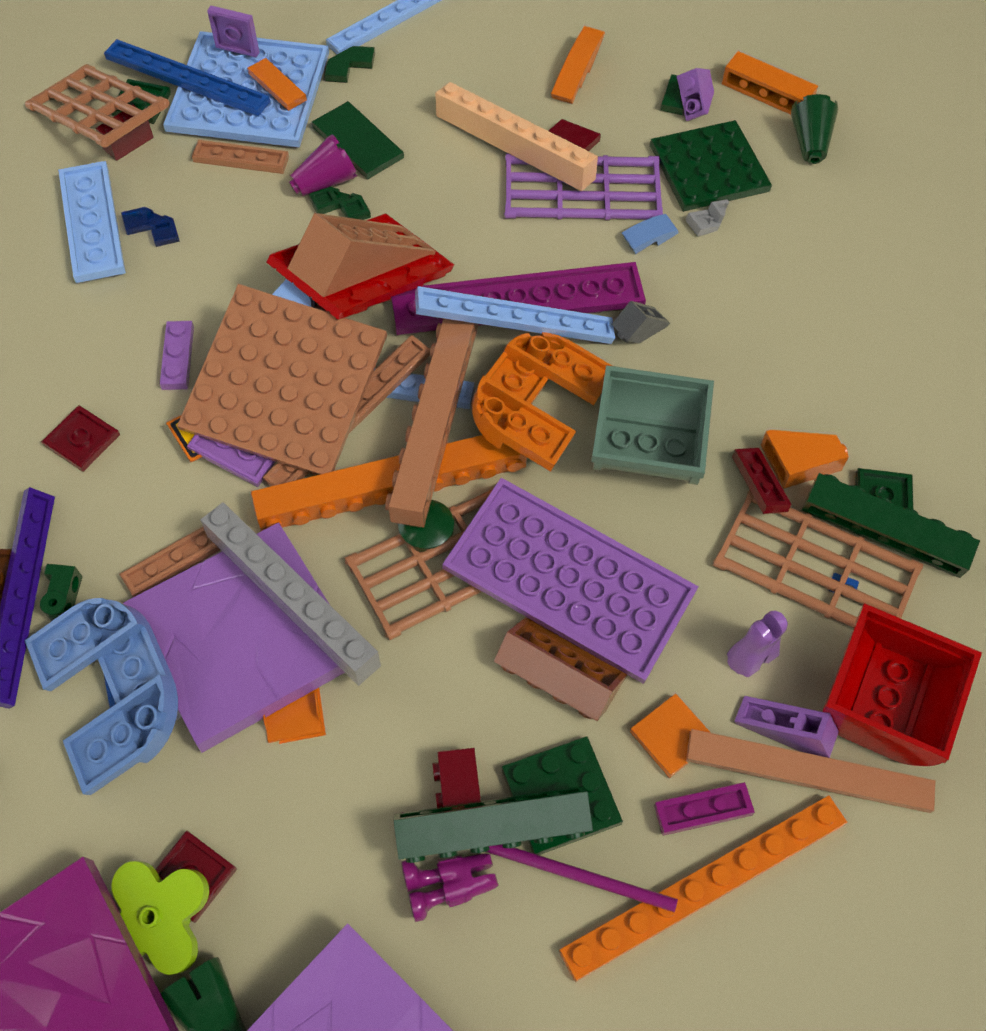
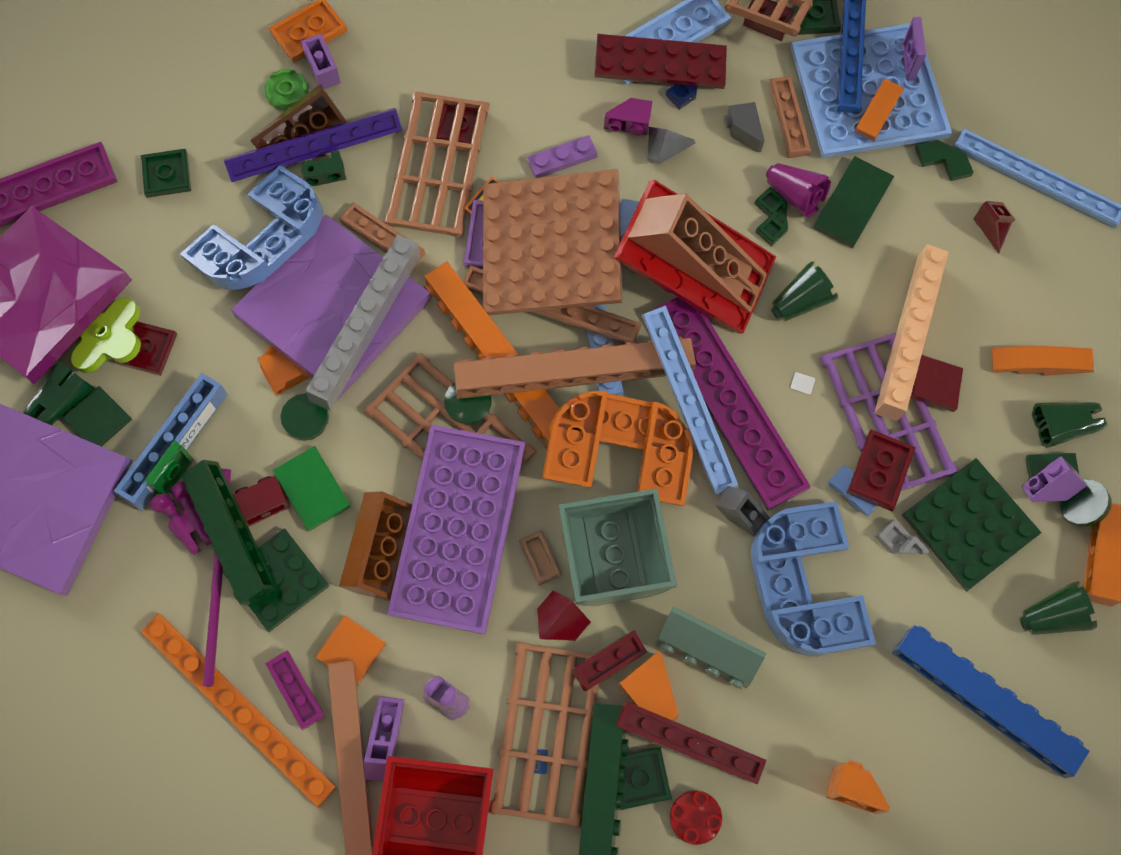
camera: 70 degrees right, 10 degrees up
(118, 232) = (660, 61): none -> dark red plate
(130, 495) = (443, 184): none -> nougat door
(169, 276) = (629, 117): none -> magenta slope
(215, 260) = (665, 144): none -> dark grey slope
(234, 189) = (745, 125): none -> dark grey slope
(261, 966) = (97, 417): none -> dark green tile
(342, 870) = (182, 426): none -> medium blue brick
(369, 707) = (303, 418): none -> dark green tile
(380, 877) = (169, 469): none -> green tile
(431, 51) = (994, 222): none -> dark red slope
(438, 198) = (804, 293): none -> dark green cone
(462, 722) = (311, 488): none -> green tile
(524, 239) = (802, 383): none -> white sticker
(626, 514) = (540, 557): none -> medium nougat tile
(640, 204) = (881, 470): none -> dark red tile
(642, 67) = (1066, 421): none -> dark green piece
(697, 513) = (560, 618): none -> dark red slope
(726, 78) = (1087, 505): none -> tile
(768, 315) = (784, 589): none -> medium blue plate
(773, 389) = (710, 648): none -> sand green slope
(865, 433) = (690, 742): none -> dark red plate
(876, 205) = (991, 702): none -> blue brick
(935, 460) = (696, 817): none -> red dish
(938, 318) = (856, 788): none -> orange slope

